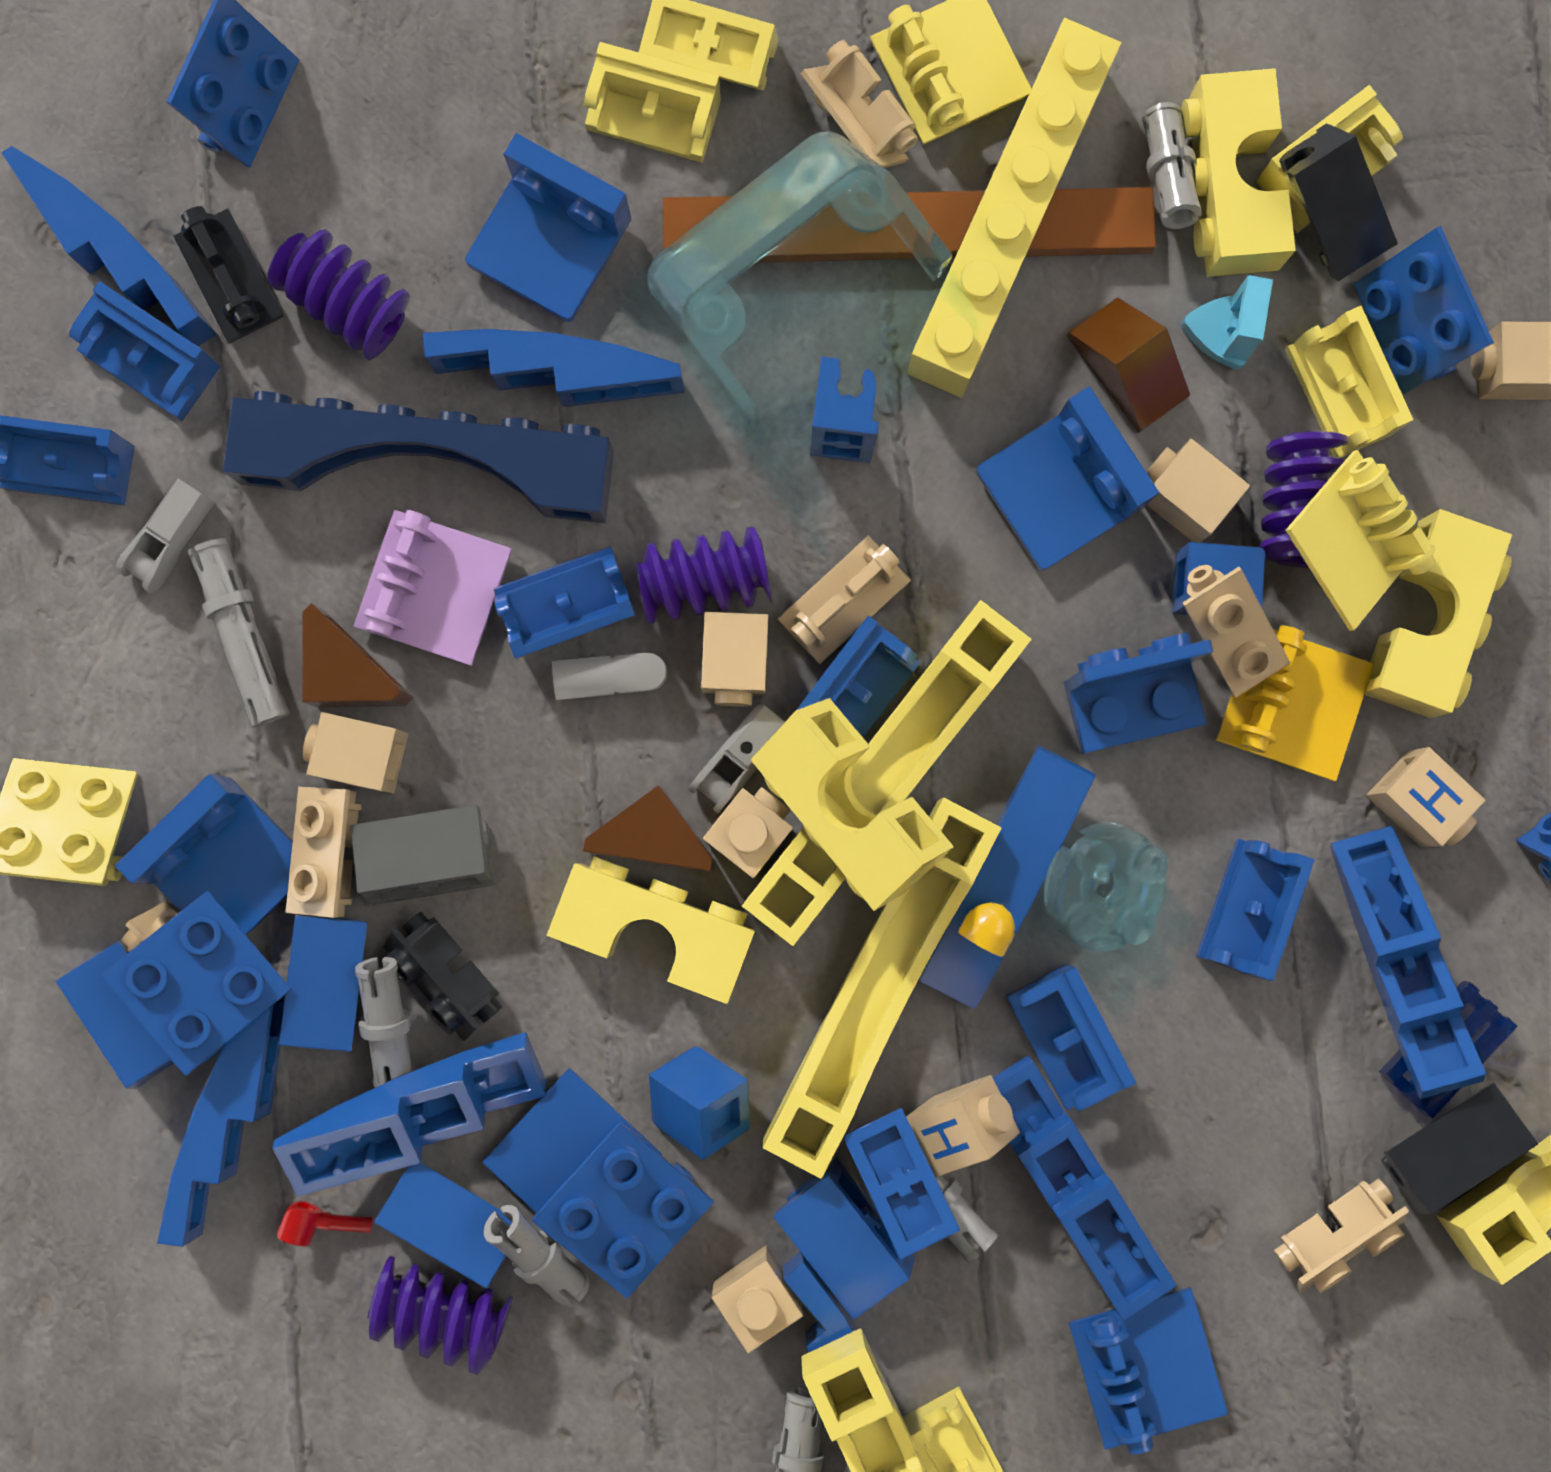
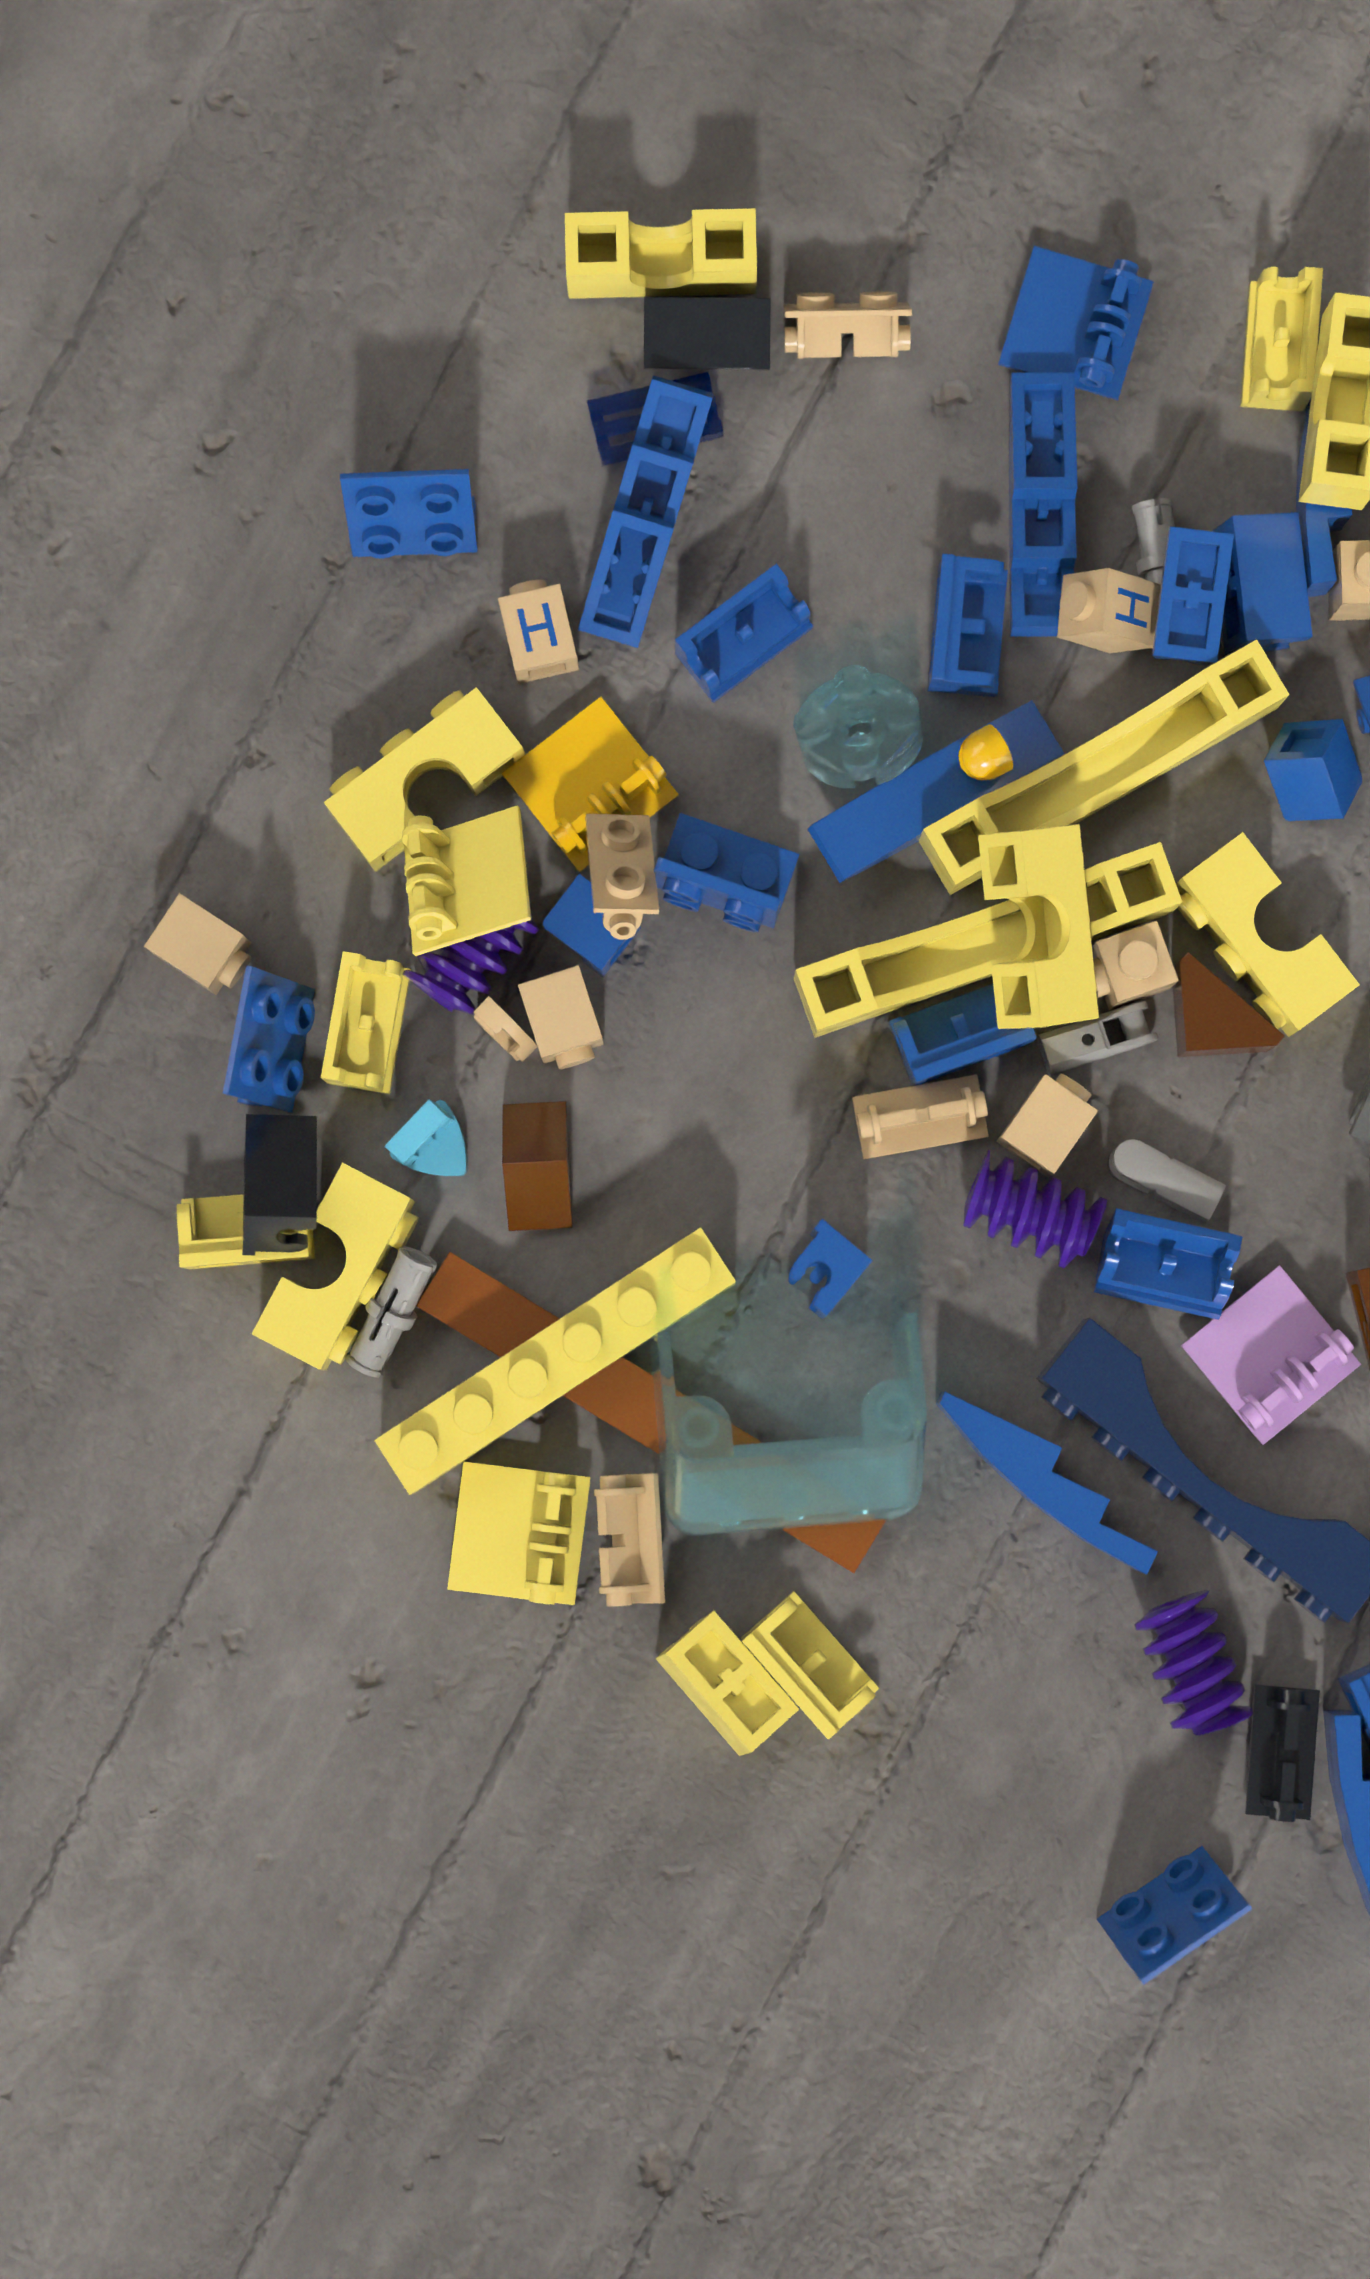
camera: 145 degrees left, 0 degrees up
(549, 230) = (979, 1602): blue bracket -> none
(1067, 481) = (669, 1094): blue bracket -> none
(1244, 457) = (504, 1030): none -> tan tile

